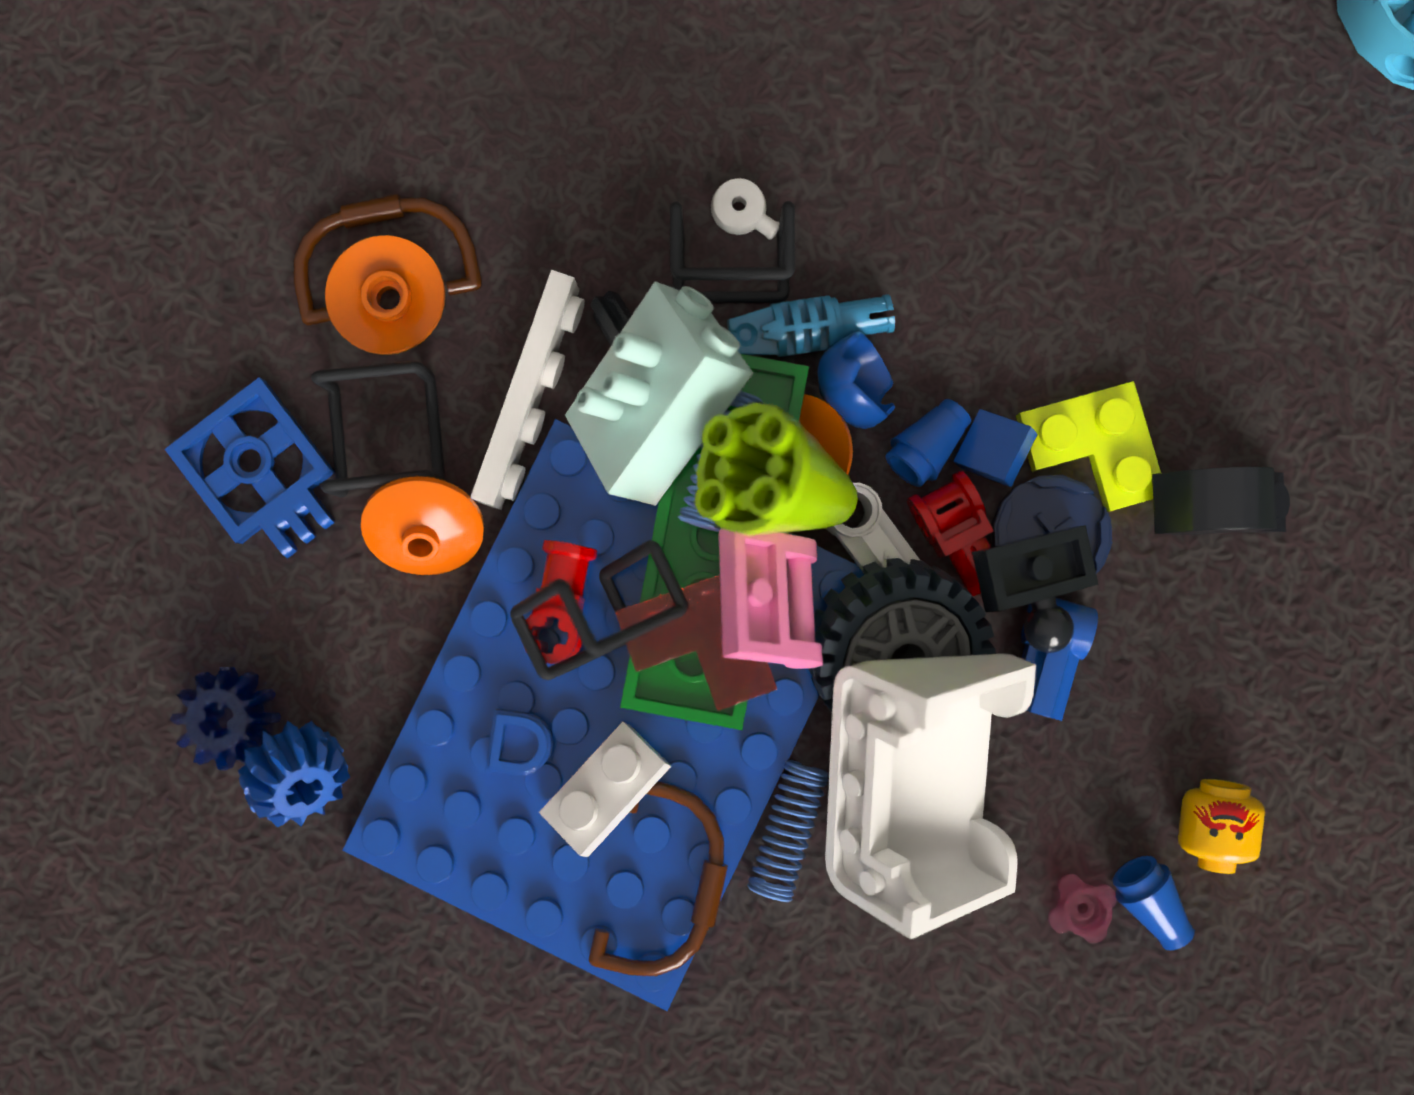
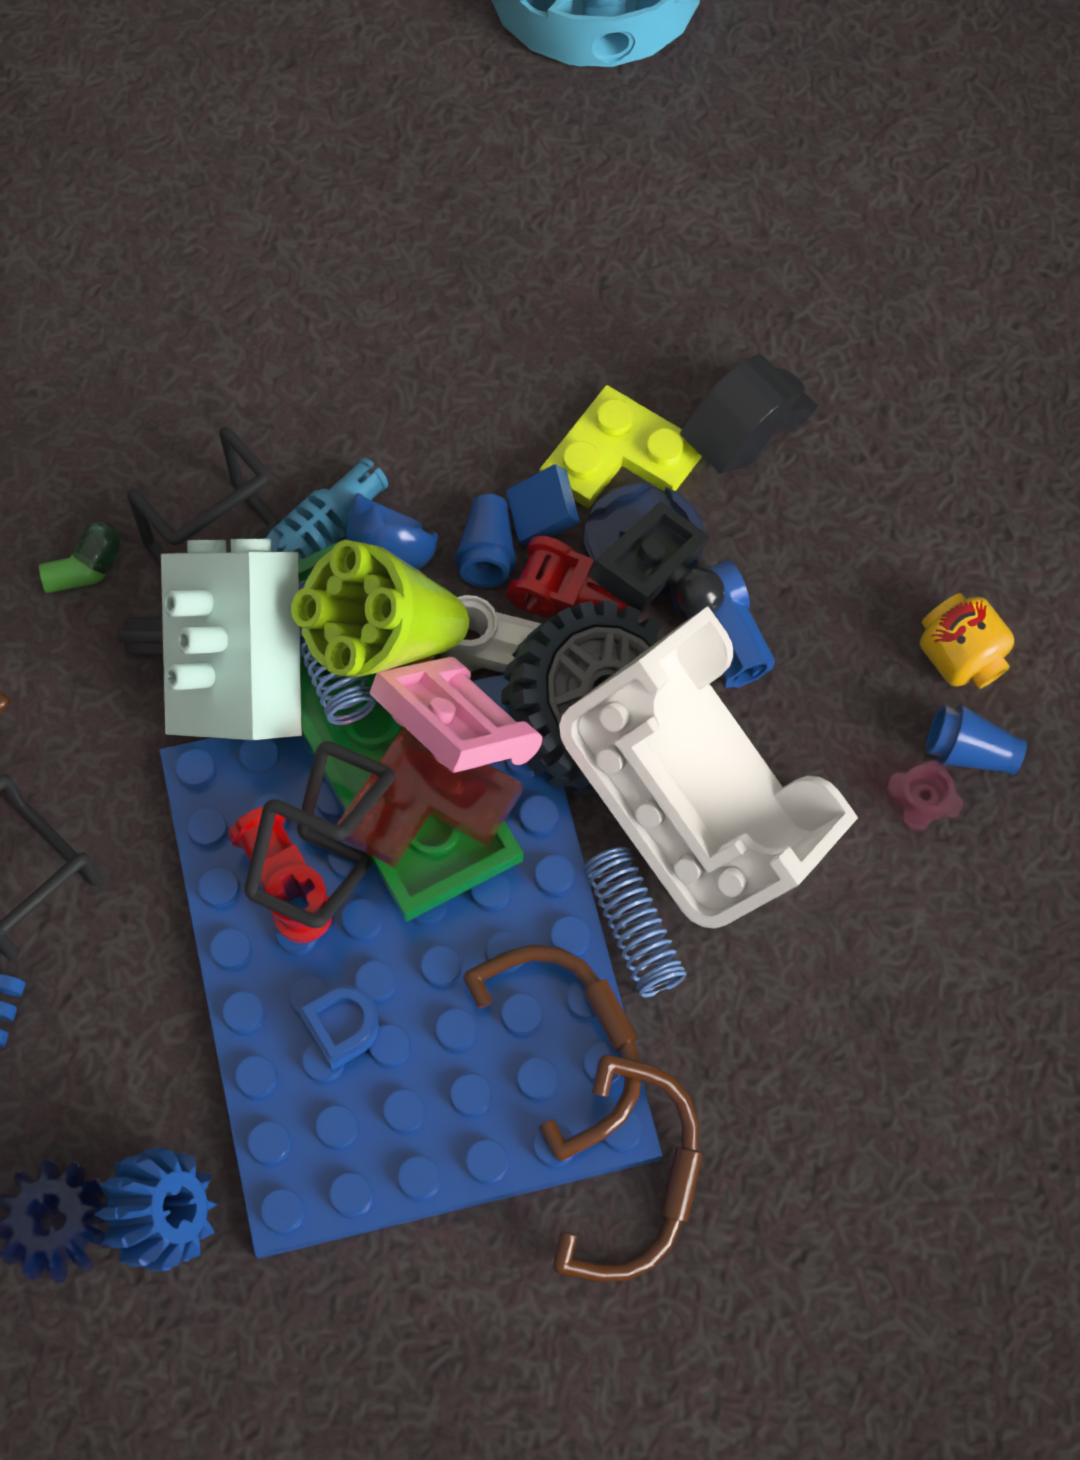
camera: 45 degrees left, 20 degrees down
(426, 509) = (88, 896): orange dish -> none
(537, 367) = (129, 768): white plate -> none
(604, 789) = (448, 997): white plate -> none
(620, 217) = (88, 562): none -> arm
(657, 1043) = (680, 1185): none -> reddish brown piece
(749, 218) = (197, 492): white piece -> none

